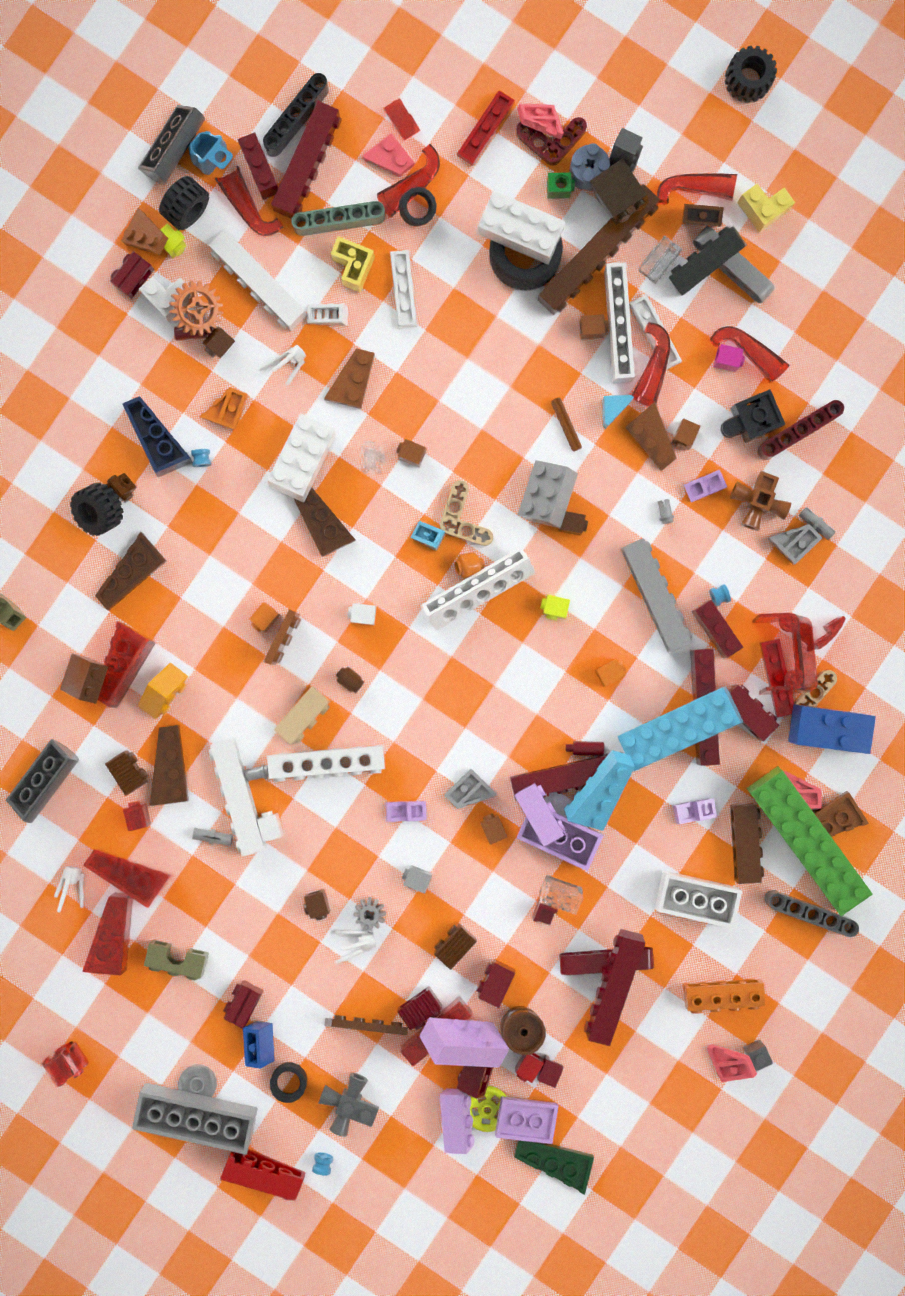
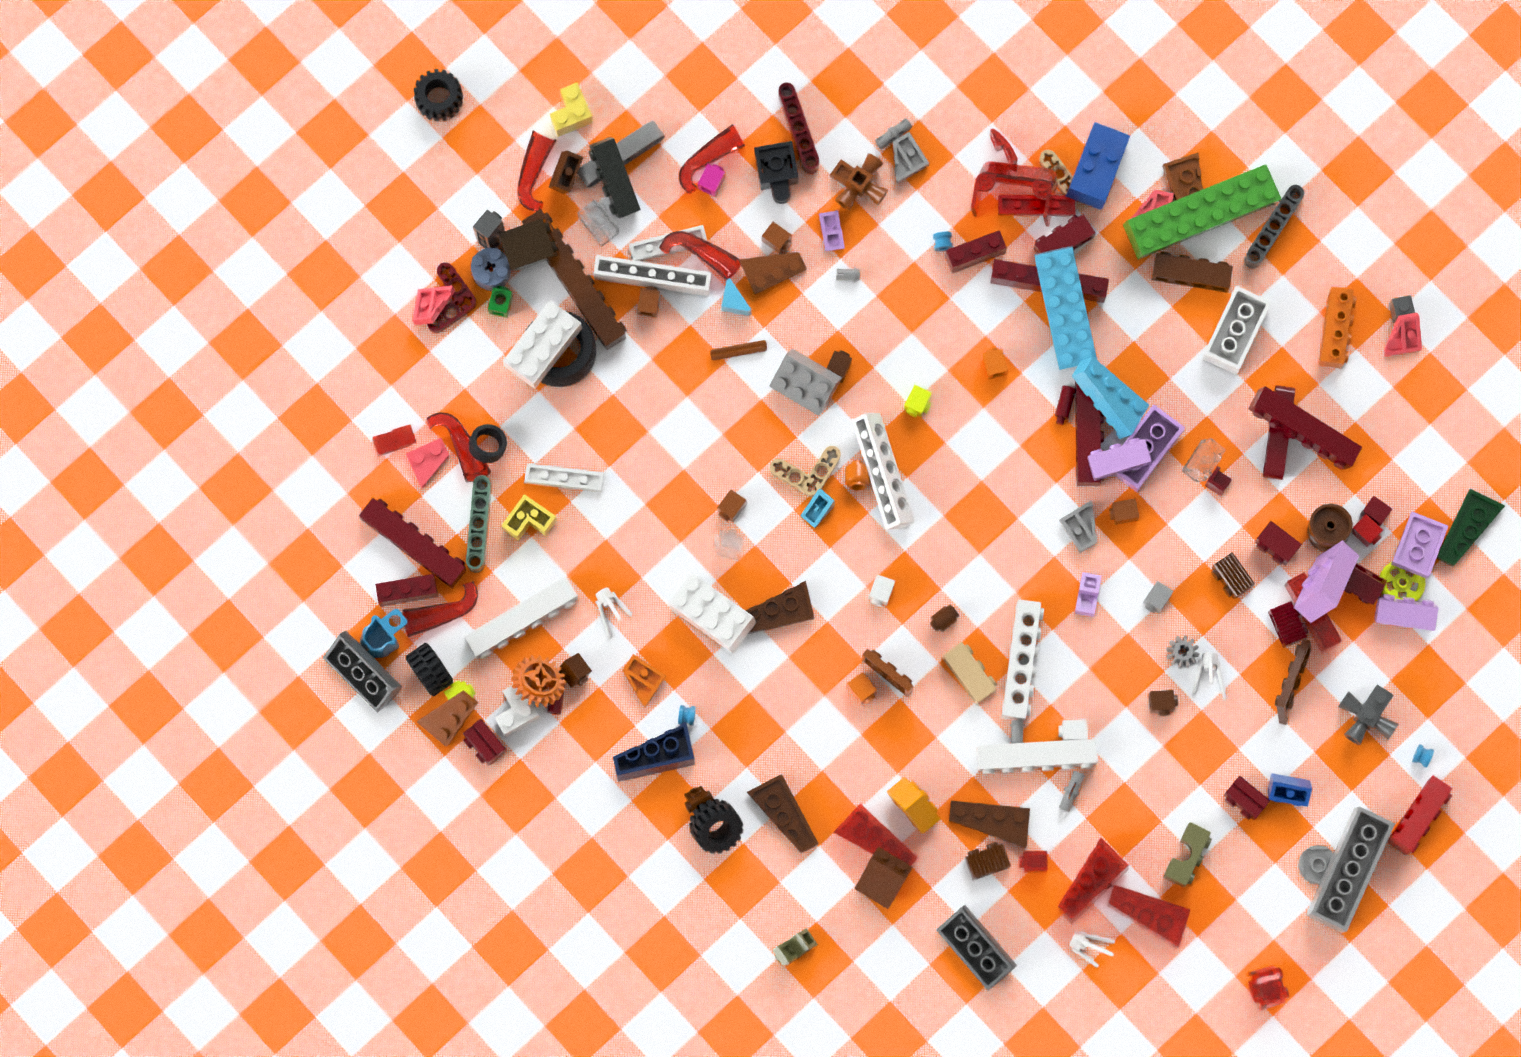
camera: 80 degrees left, 10 degrees down
(288, 1097) = (1349, 771): black tyre -> none
(296, 106) = (357, 535): black beam -> none
(343, 314) = (579, 543): white slope -> none
(352, 381) = (644, 548): dark orange wing -> none
(485, 127) = (424, 360): red plate -> none
(656, 595) = (928, 302): light grey brick -> none
(695, 811) = (1150, 314): lavender slope -> none

